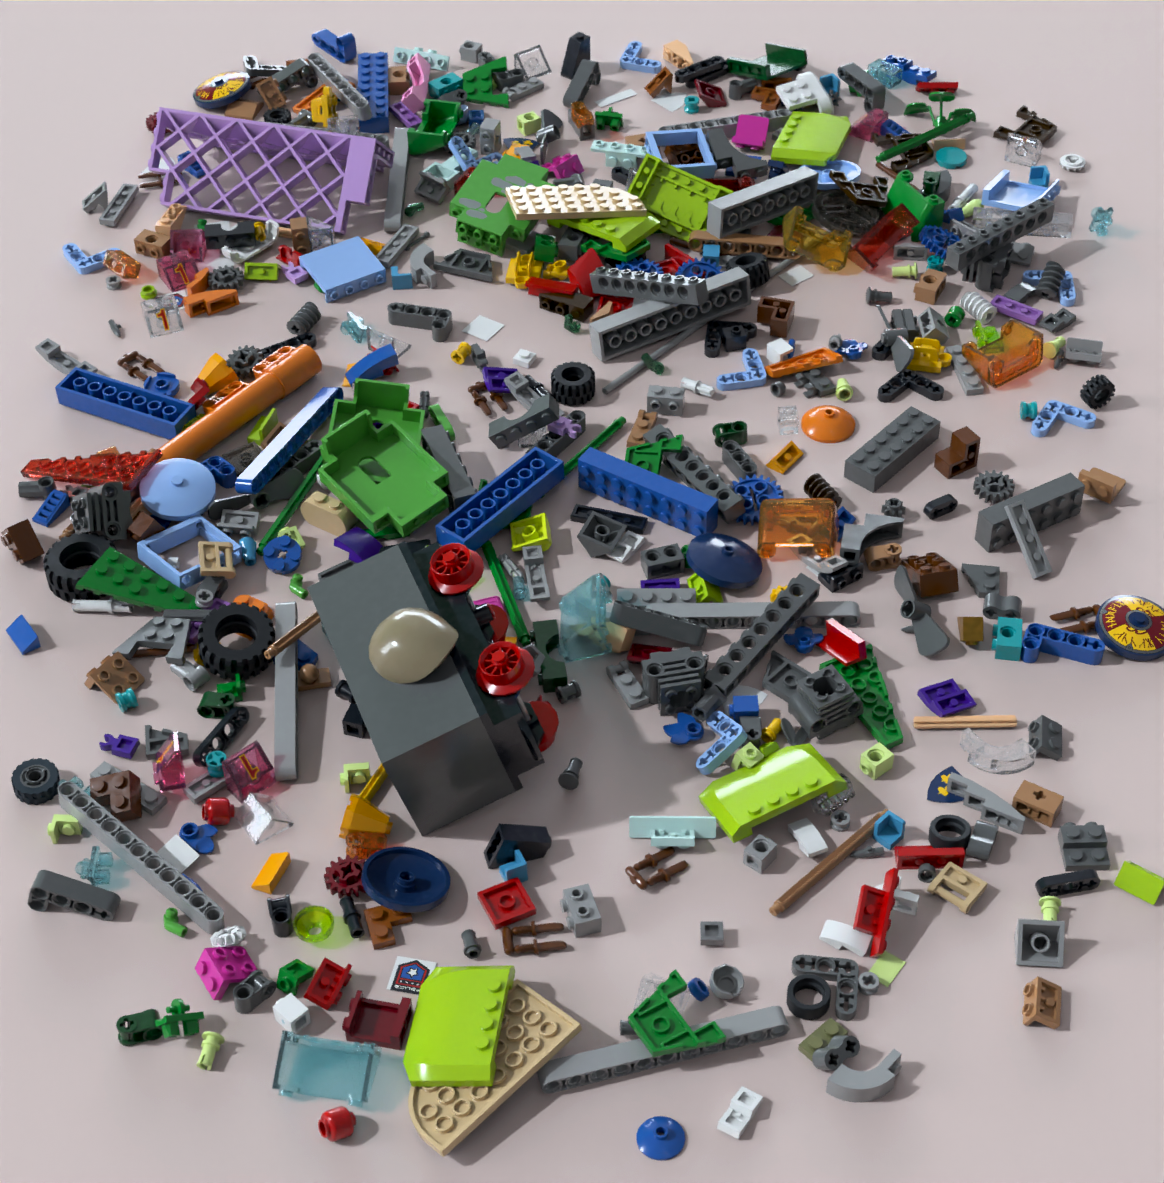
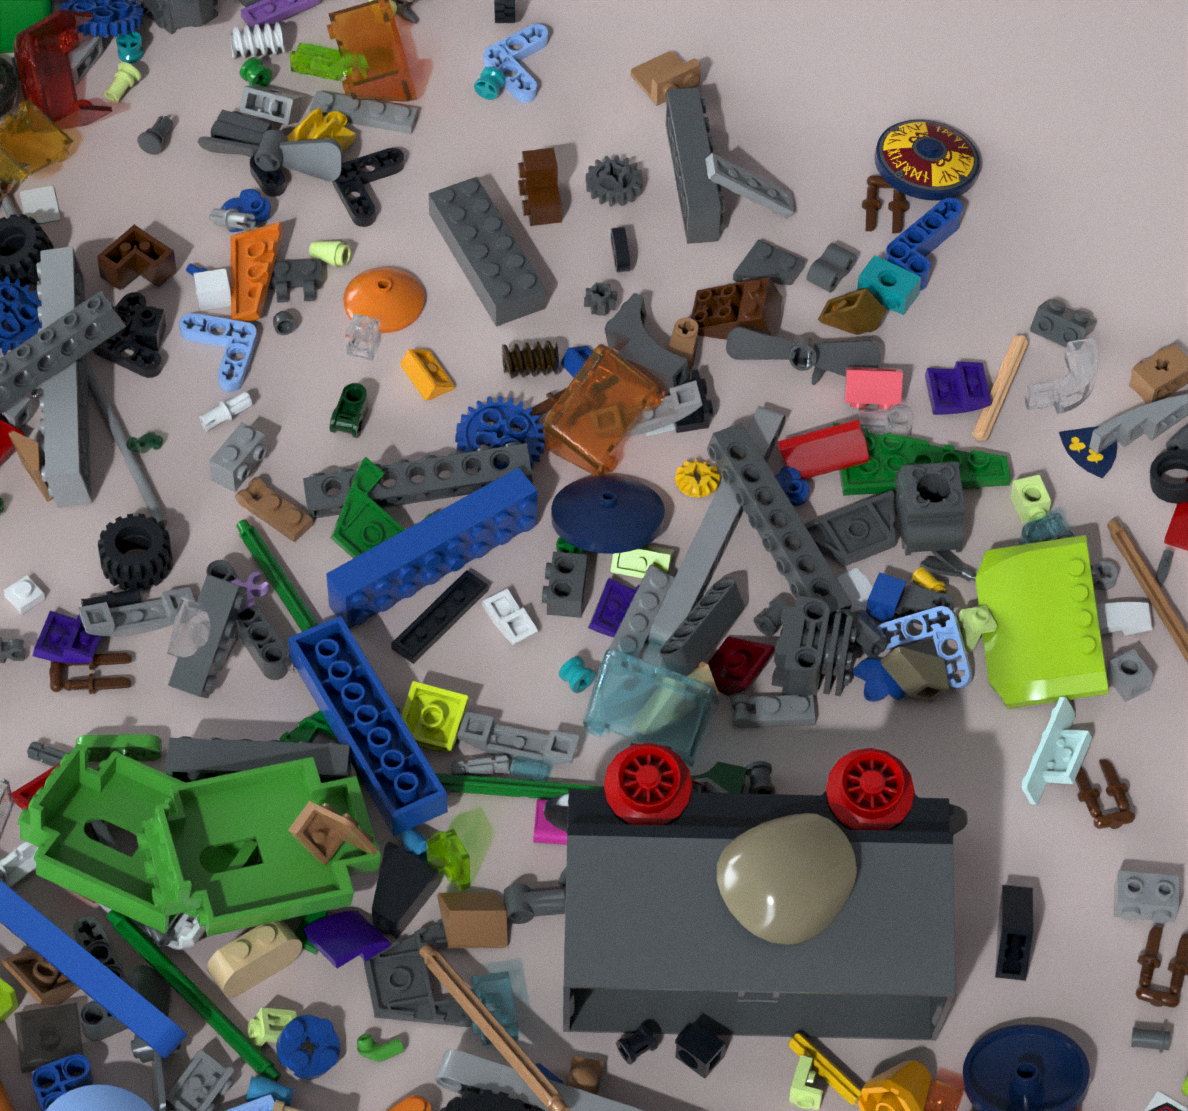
camera: 70 degrees left, 10 degrees up
(397, 491) = (323, 831): none -> medium nougat bracket
(506, 903) = (1099, 976): red plate -> none
(515, 868) = (1049, 948): dark azure panel -> none
(600, 534) = (487, 630): dark grey slope -> none
(689, 738) = (917, 673): none -> dark tan slope
(738, 460) = (417, 424): dark grey beam -> none
(768, 748) = (965, 598): lime tile -> none
(854, 773) = (1043, 529): none -> clear light blue piece
(889, 830) = (1144, 532): dark azure panel -> none
(891, 670) = (895, 420): none -> clear piece
(912, 652) = (873, 386): none -> coral brick
(930, 286) = (175, 70): medium nougat brick -> none
(979, 340) = (344, 64): none -> clear neon green bracket

